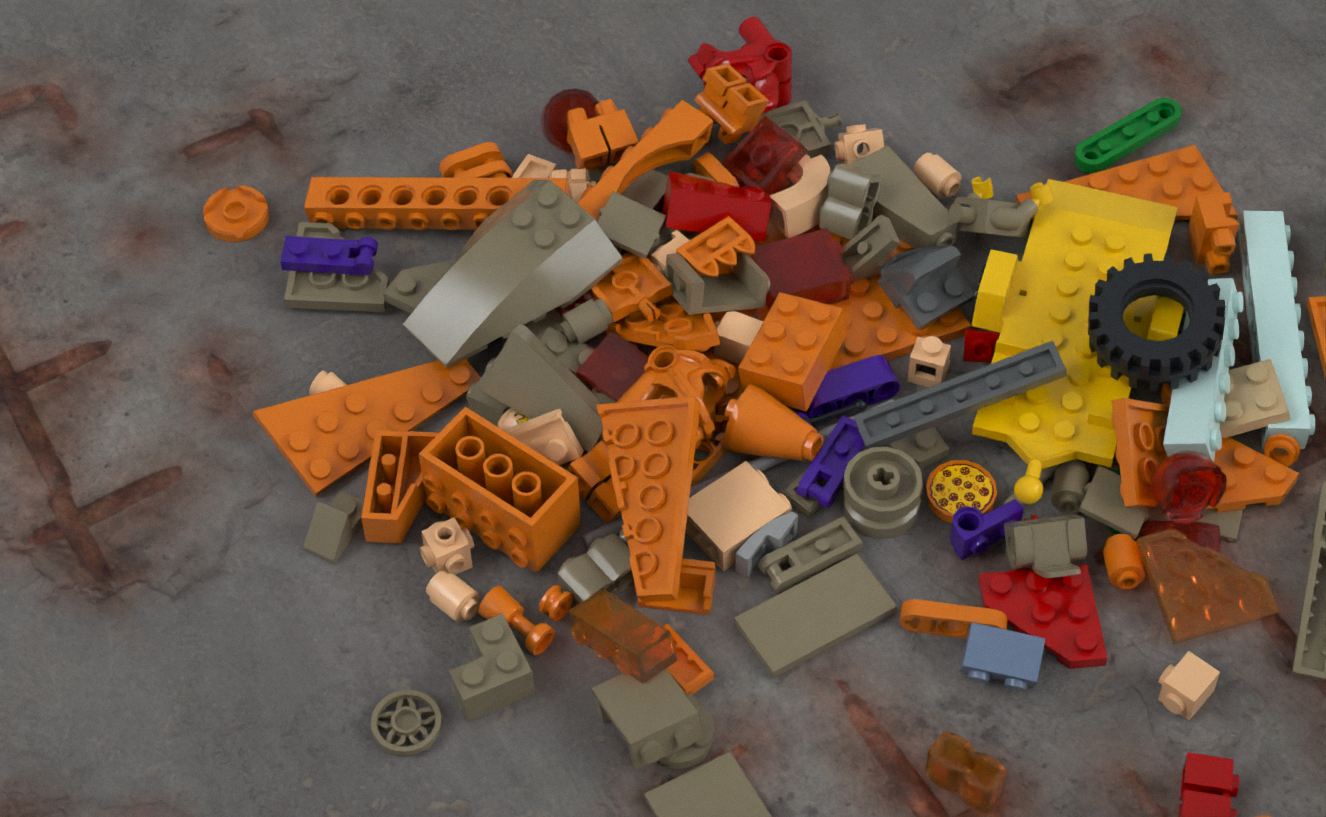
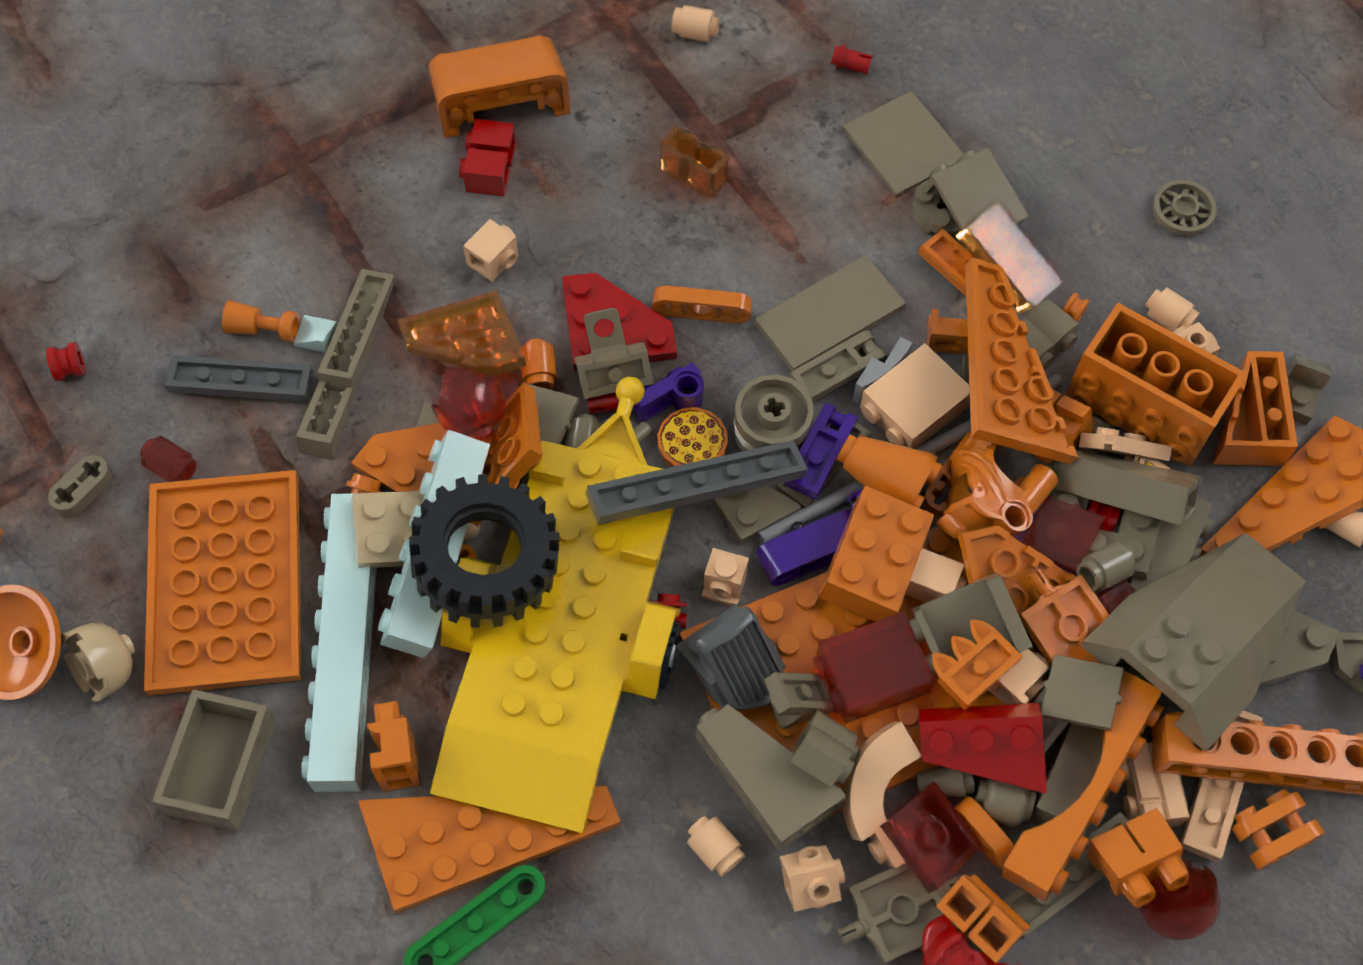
camera: 175 degrees right, 10 degrees up
(498, 673) = (1116, 241): dark tan brick -> none
(500, 601) = (1114, 294): orange piece -> none
(995, 217) = (657, 752): dark tan torso -> none
(1002, 656) = (658, 262): sand blue brick -> none

